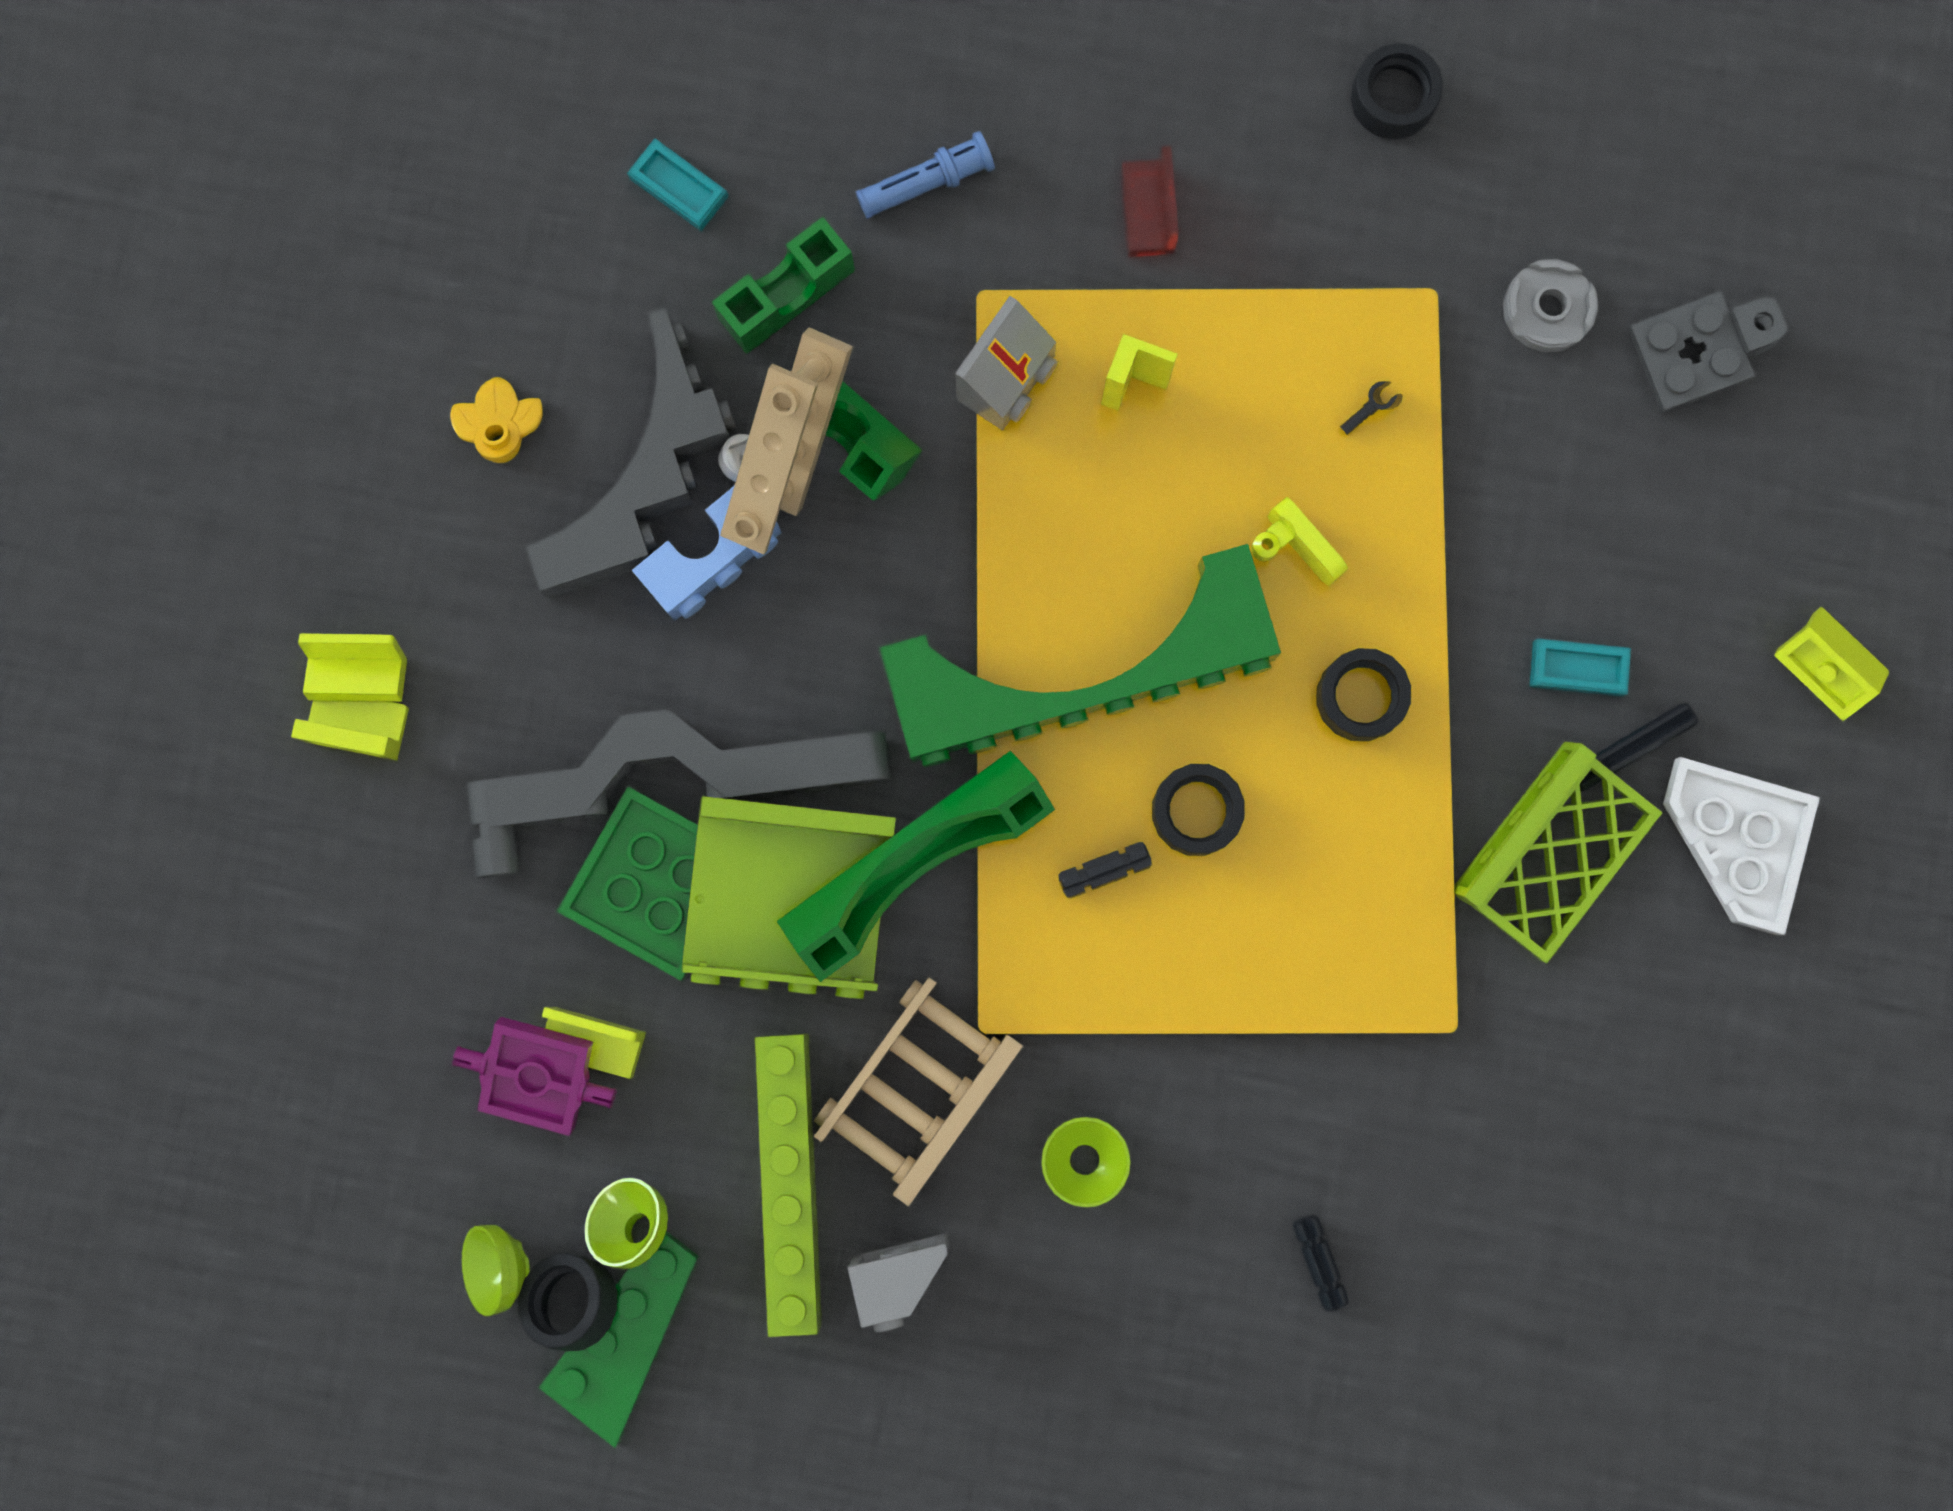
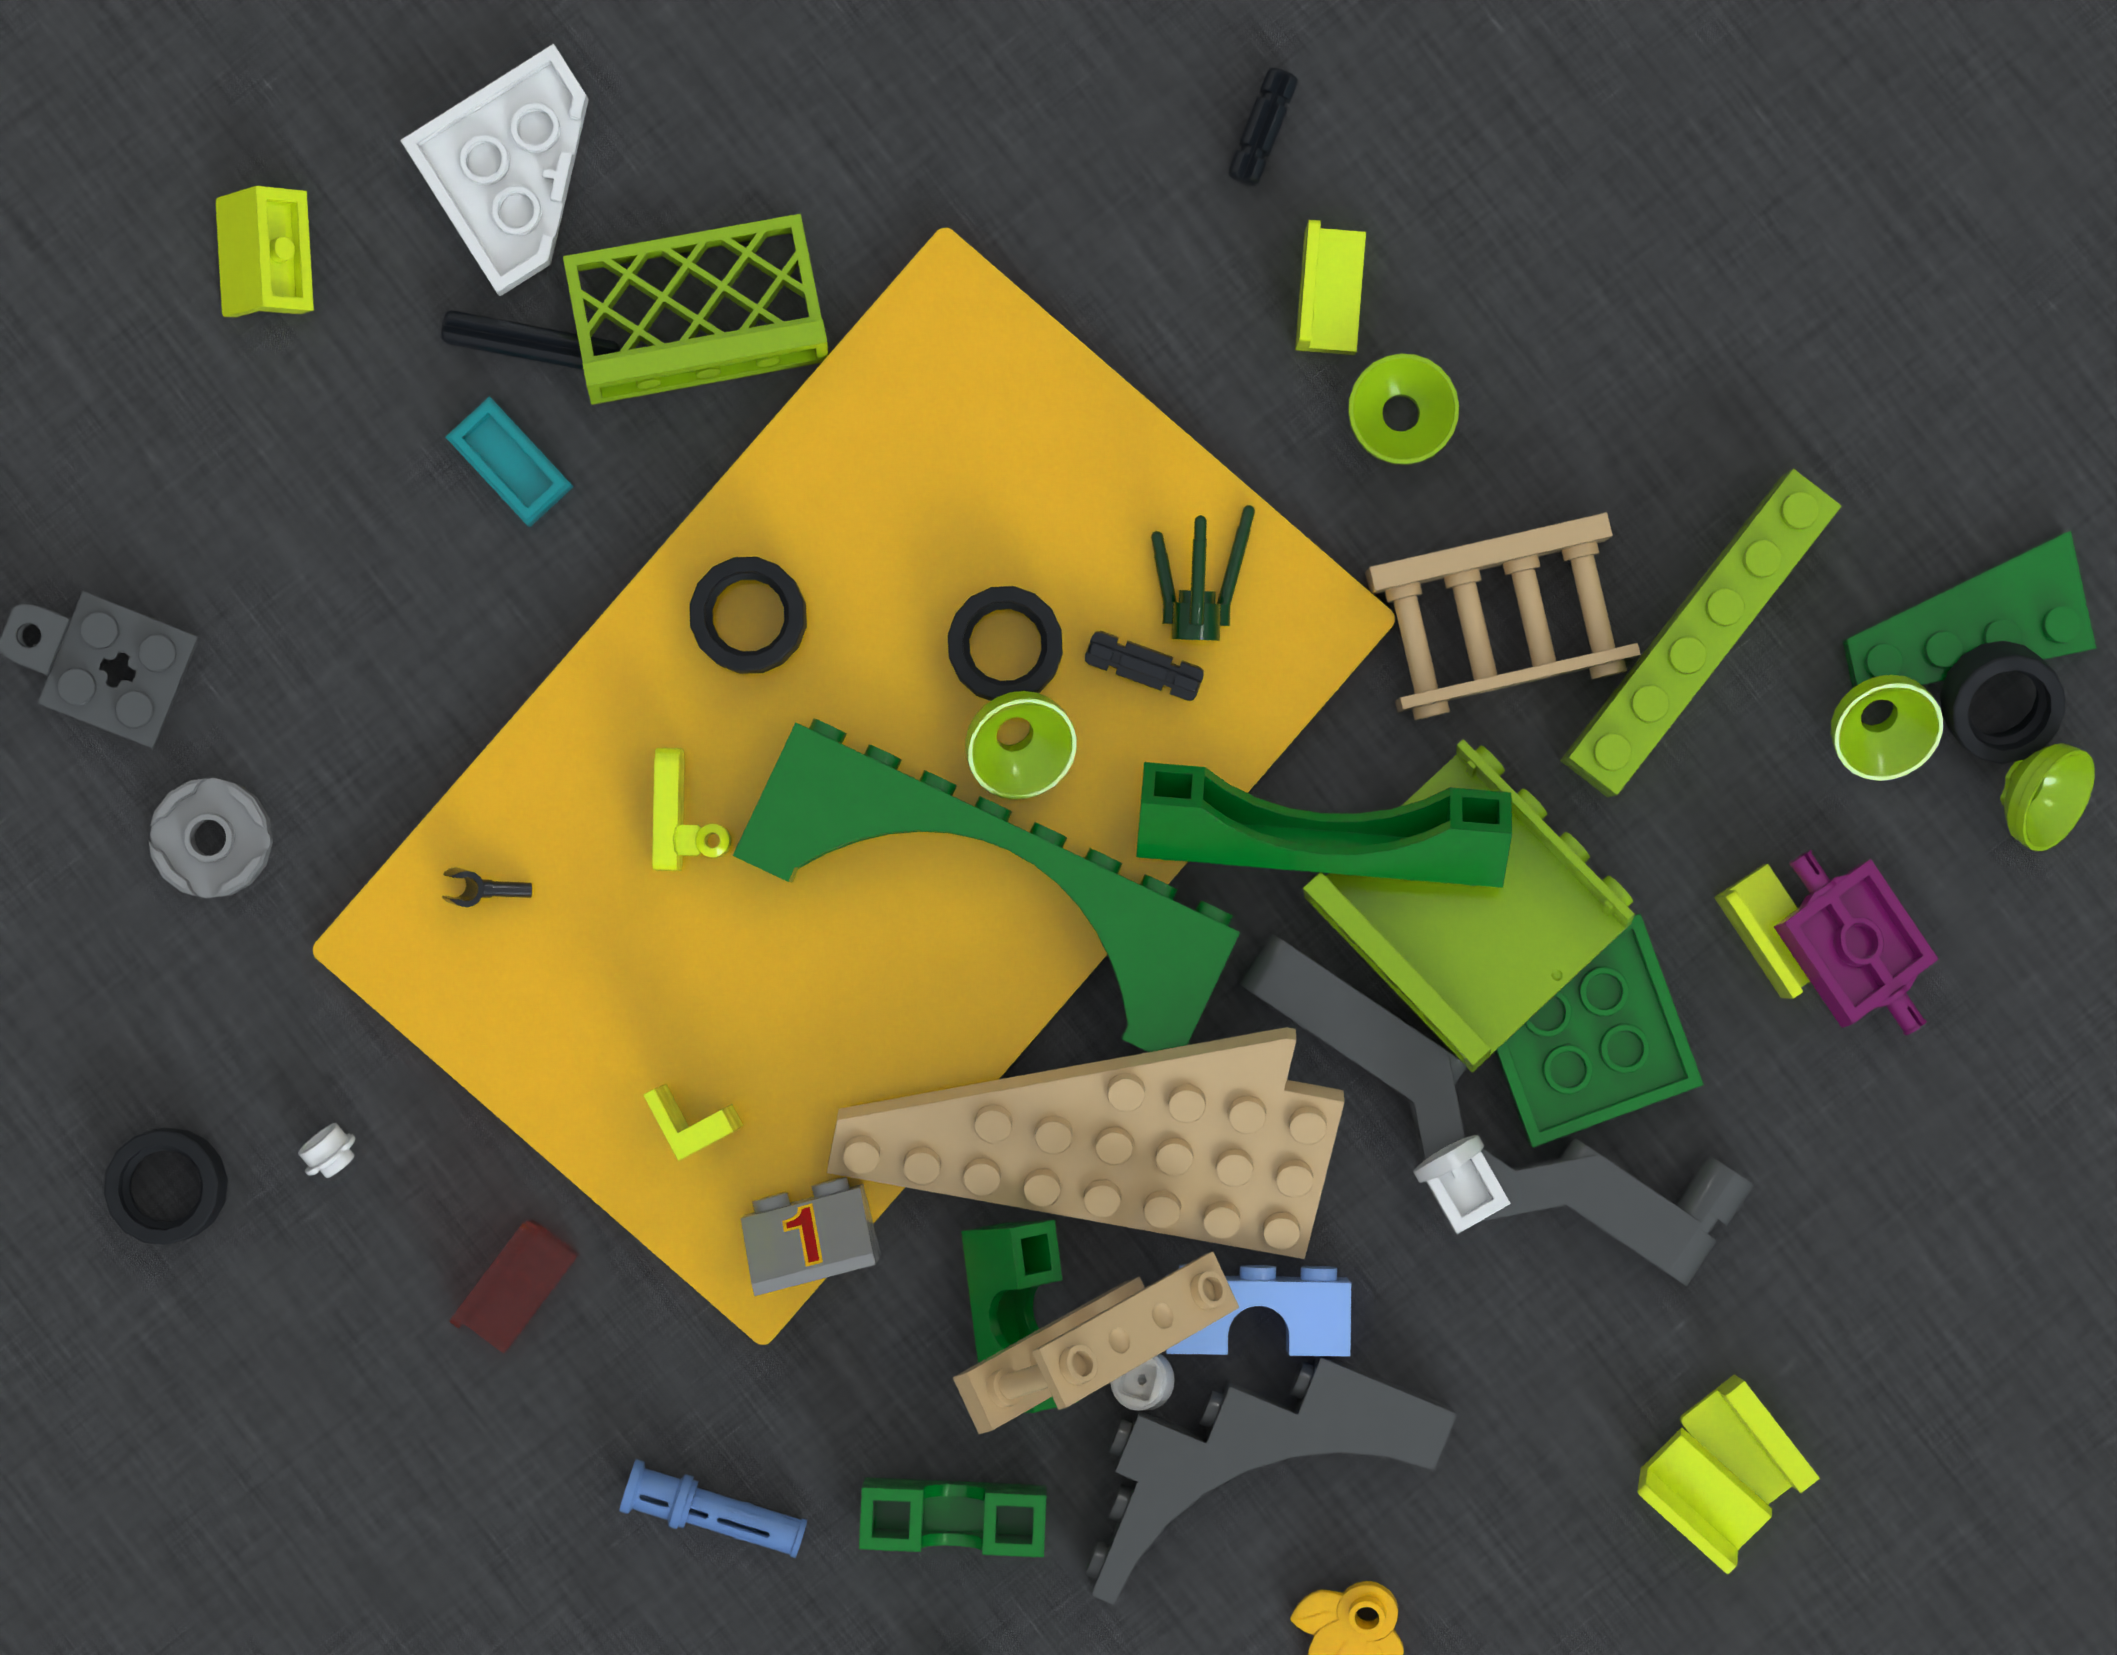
camera: 140 degrees left, 5 degrees up
(650, 726) = (1463, 1183): none -> white tile
(854, 596) = (1153, 1141): none -> tan wing
(893, 1280) = (1676, 456): light grey slope -> none
(1101, 927) = (1196, 612): none -> dark green plant
(1123, 747) = (1031, 764): none -> lime piece
(1192, 1197) = (1330, 290): none -> neon yellow panel
(1323, 188) = (327, 1151): none -> white plate

